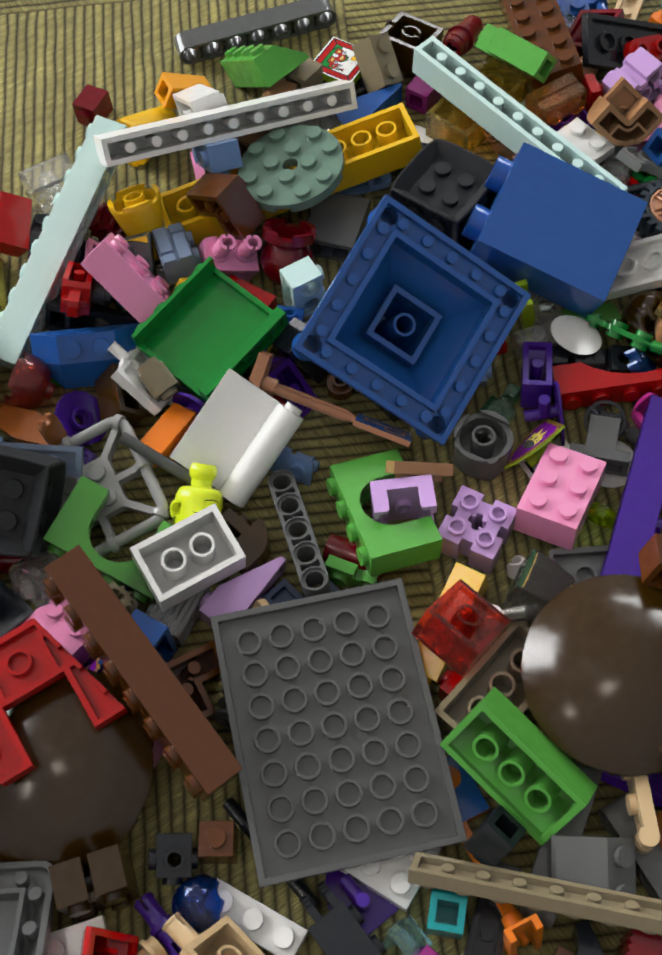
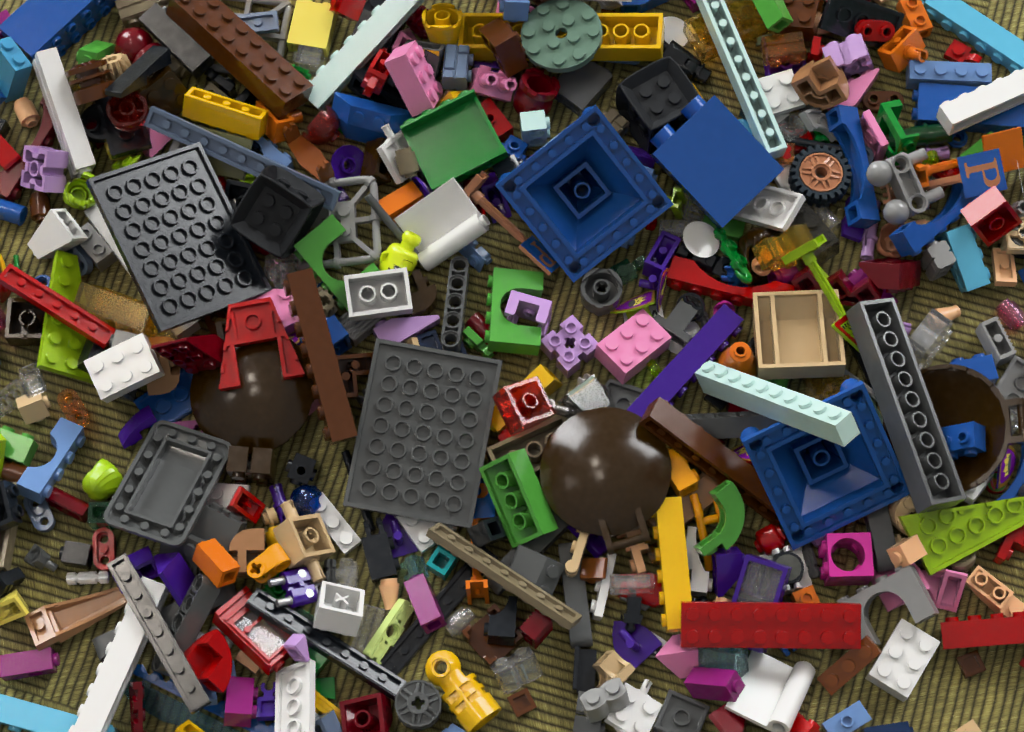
camera: 20 degrees right, 10 degrees up
(218, 842) = (330, 472): reddish brown brick -> none
(418, 468) = (552, 292): medium nougat plate -> none

